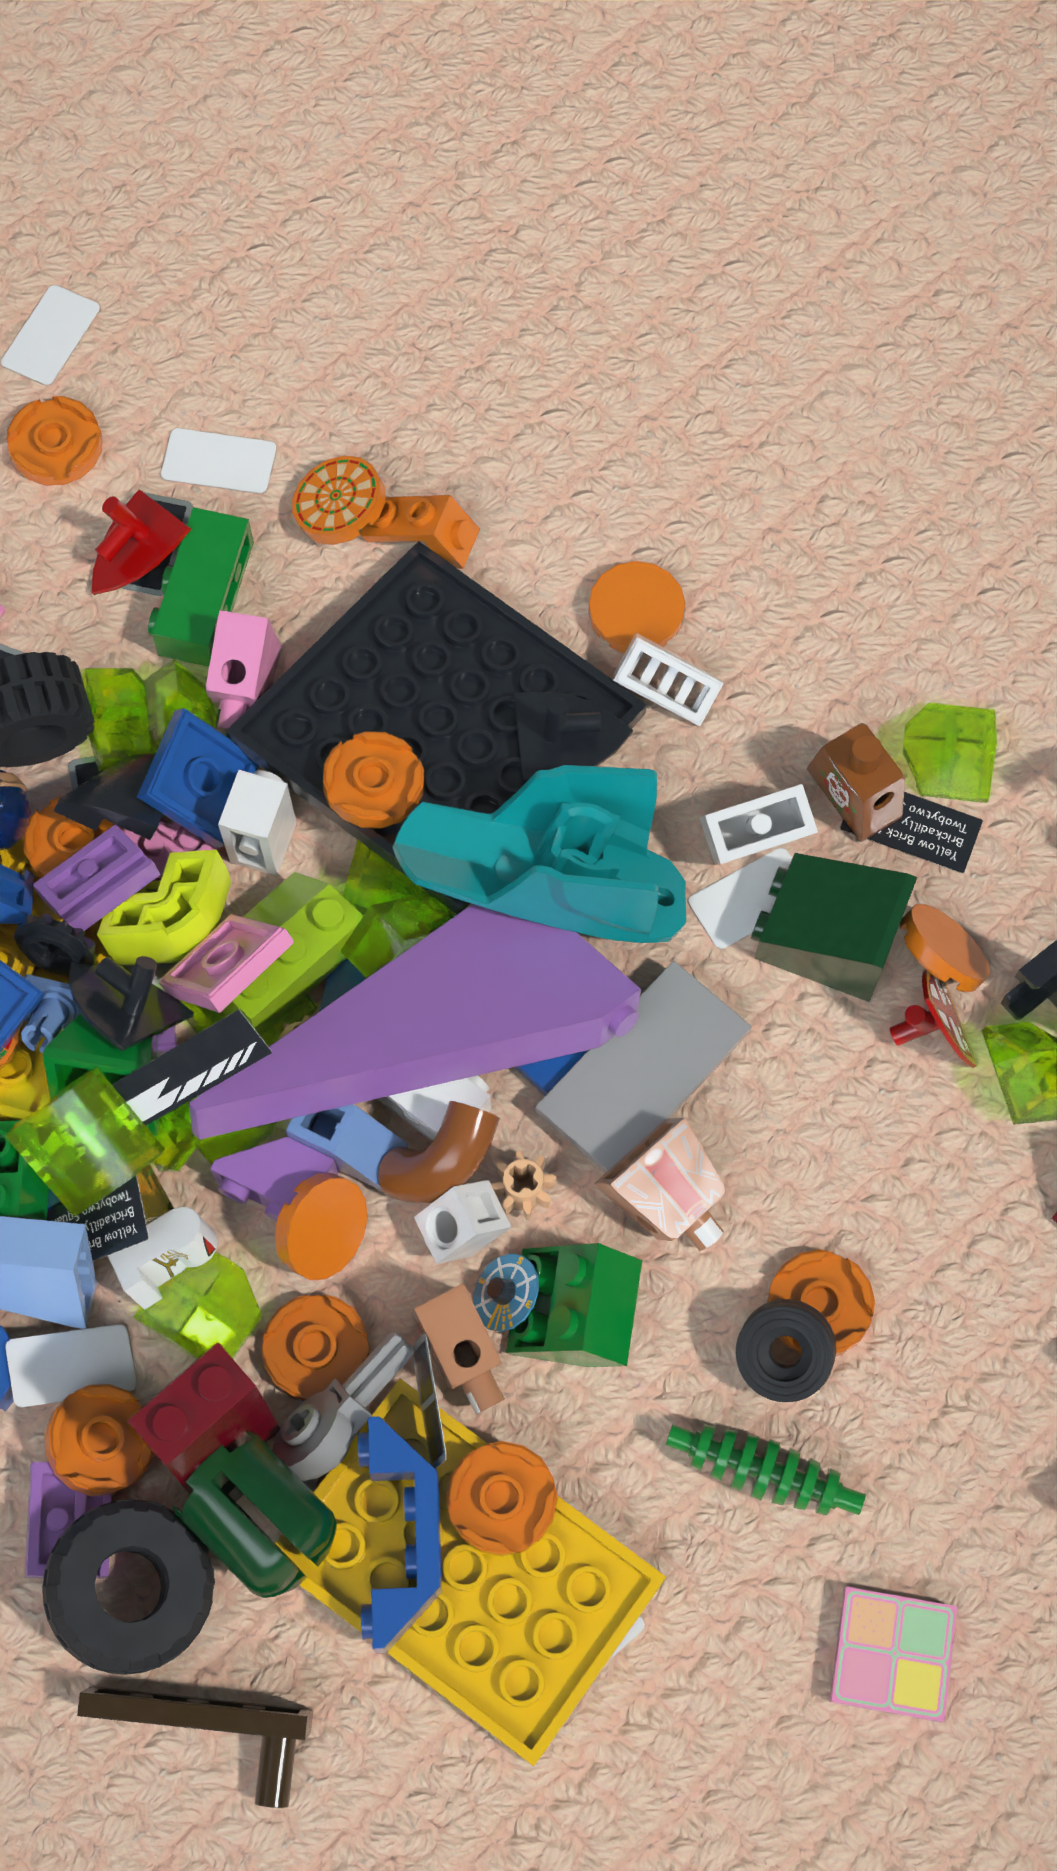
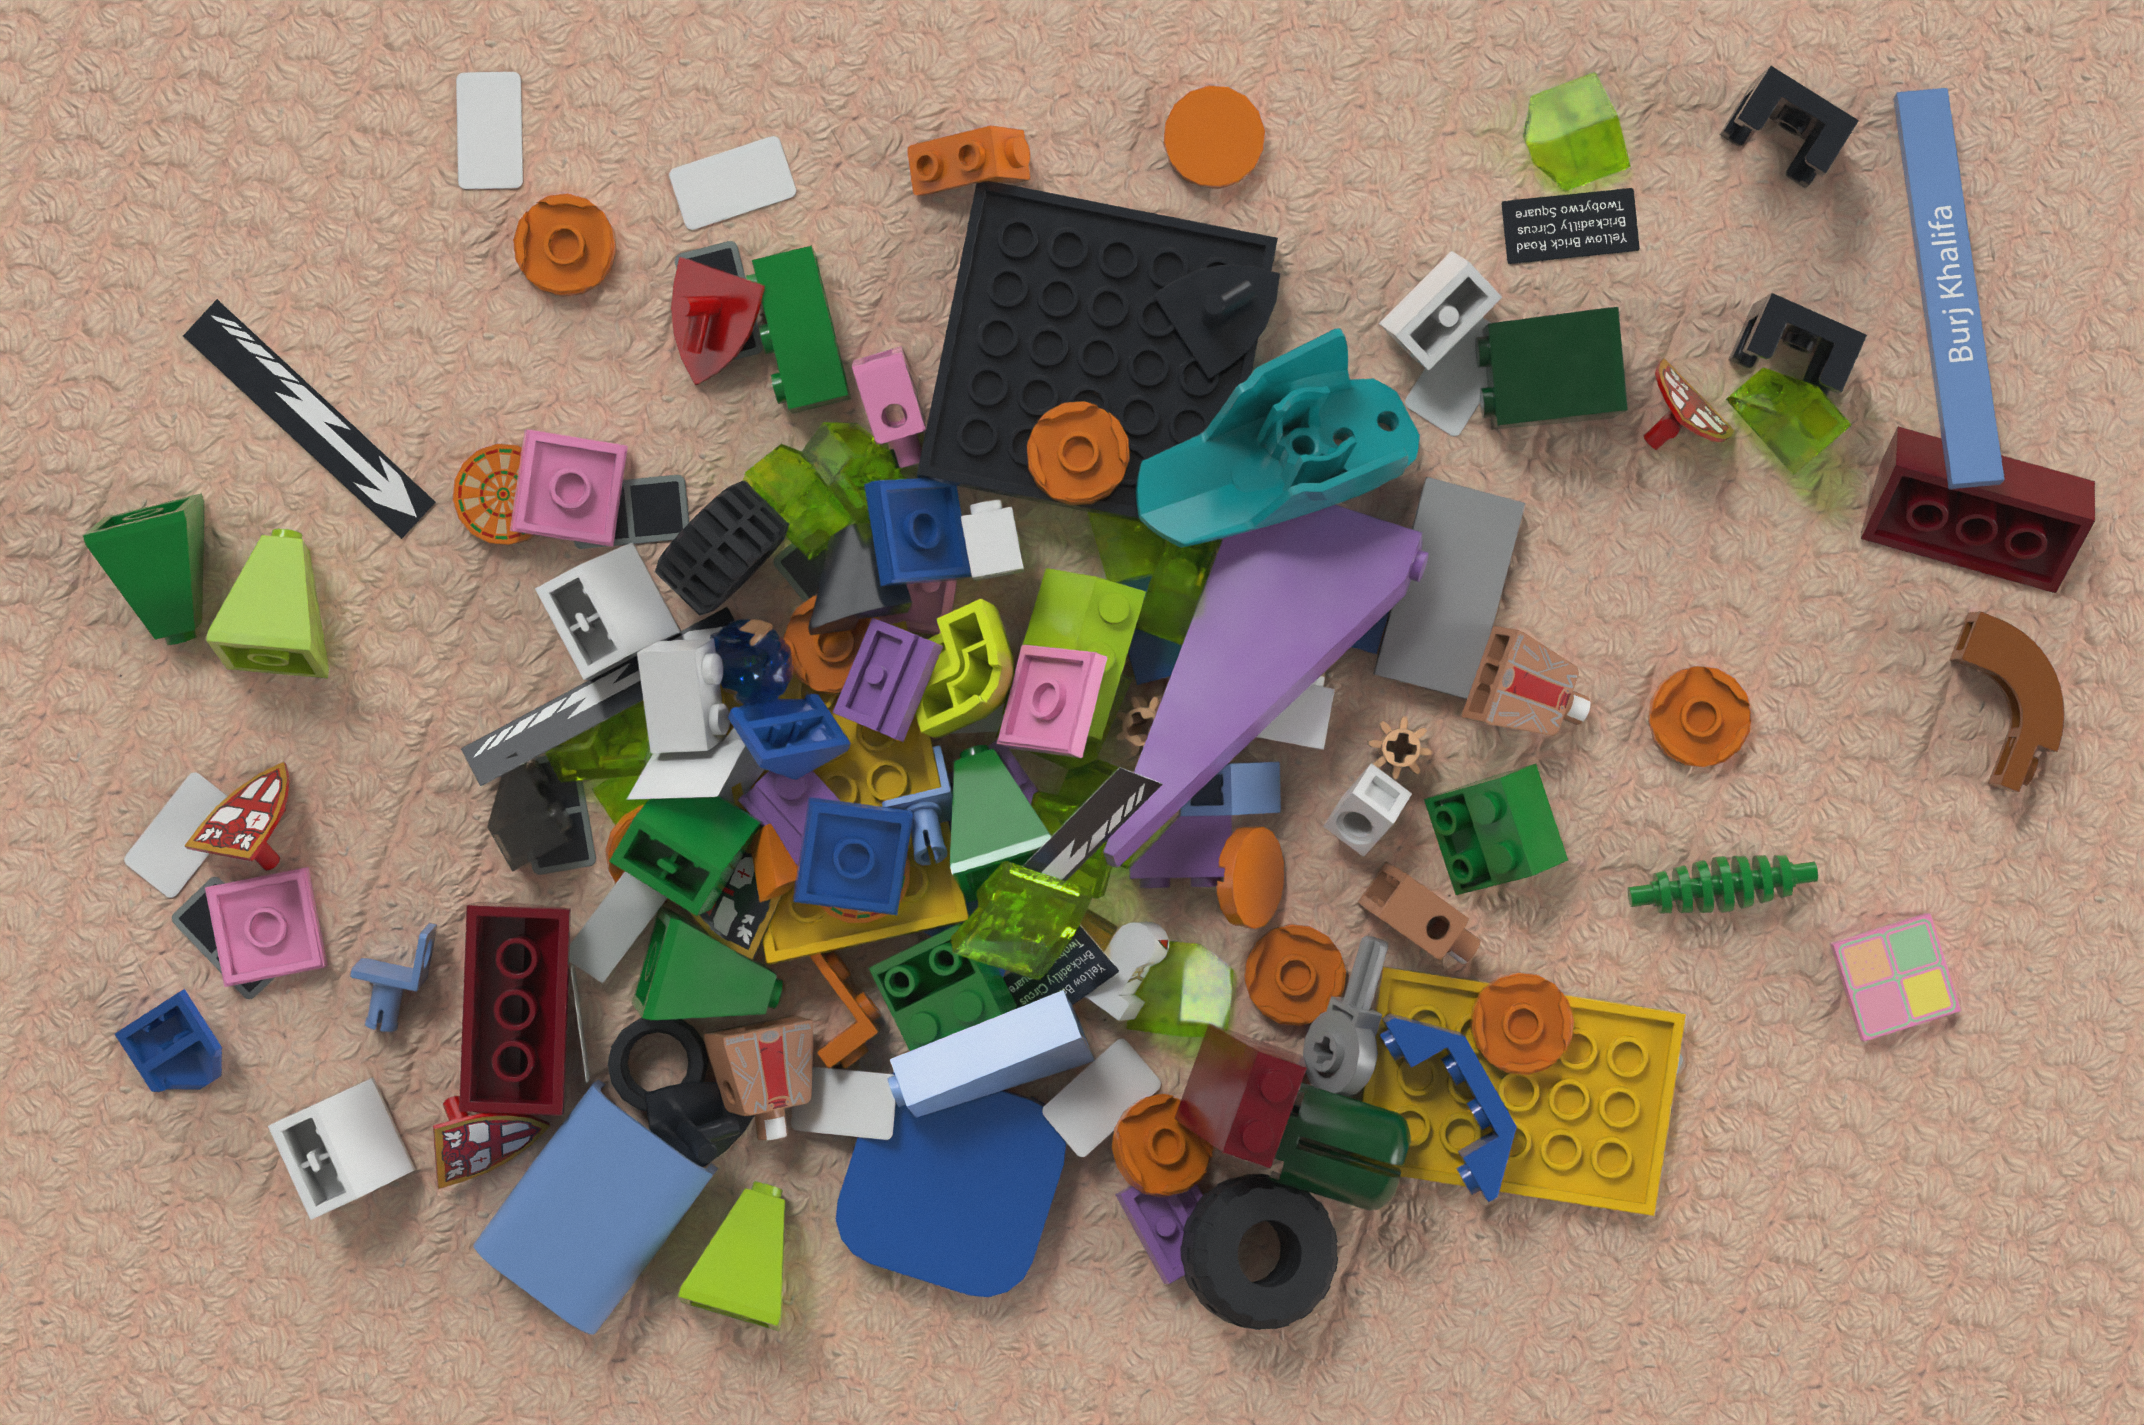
camera: 25 degrees left, 20 degrees up
(53, 944) = (890, 760): black gear -> none
(124, 1004) = (984, 785): black shield -> none
(276, 1725) = (1430, 1289): dark brown piece -> none
(338, 499) = (877, 173): orange tile -> none
(429, 1402) = (1425, 981): black sticker -> none
(446, 1162) = (1332, 772): dark orange cylinder -> none
(506, 1292) = (1432, 847): dark azure piece -> none
(624, 676) = (1262, 183): white slope -> none
(782, 1381) = (1699, 805): black tyre -> none
(856, 774) = (1508, 216): dark orange torso -> none
(944, 947) = (1664, 344): orange tile -> none

